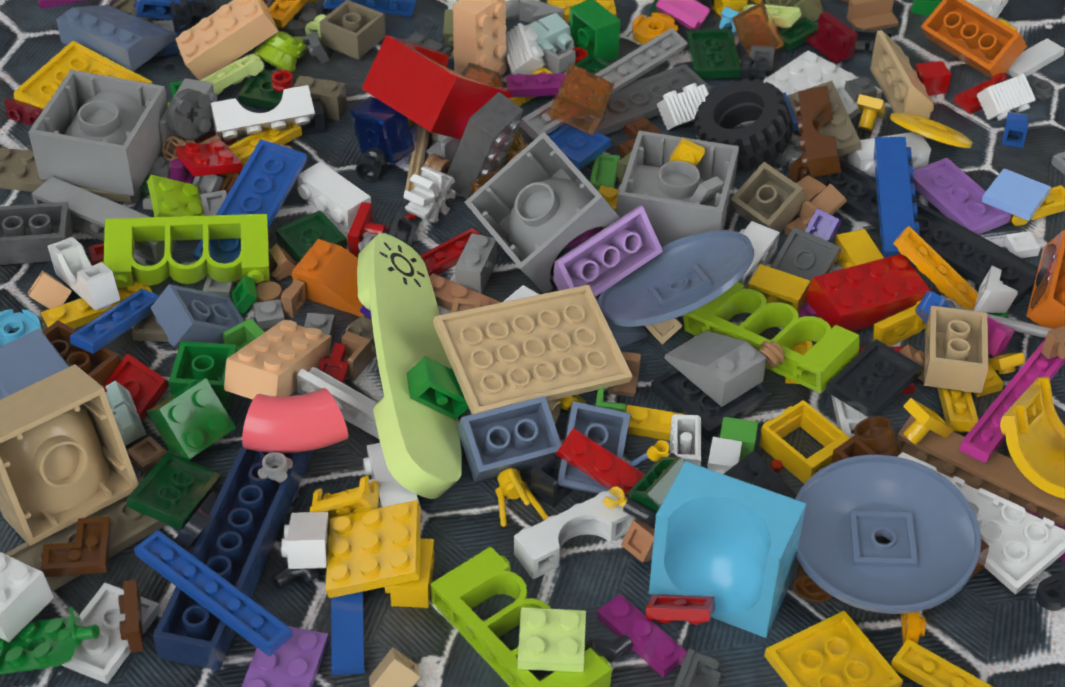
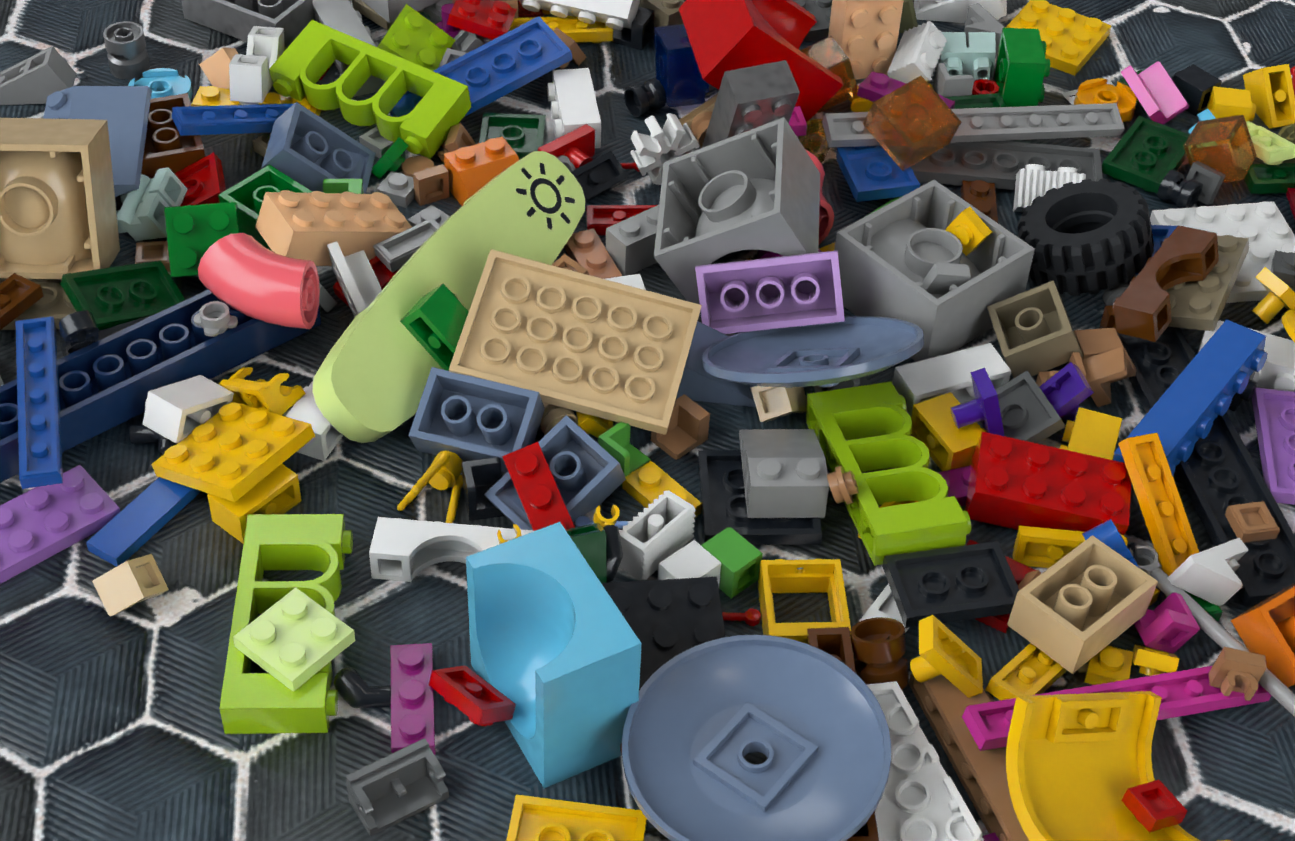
camera: 35 degrees right, 0 degrees up
(340, 345) = (399, 248): none -> light grey tile
(796, 261) = (983, 408): none -> dark purple tile
(981, 253) = (1252, 522): none -> medium nougat tile

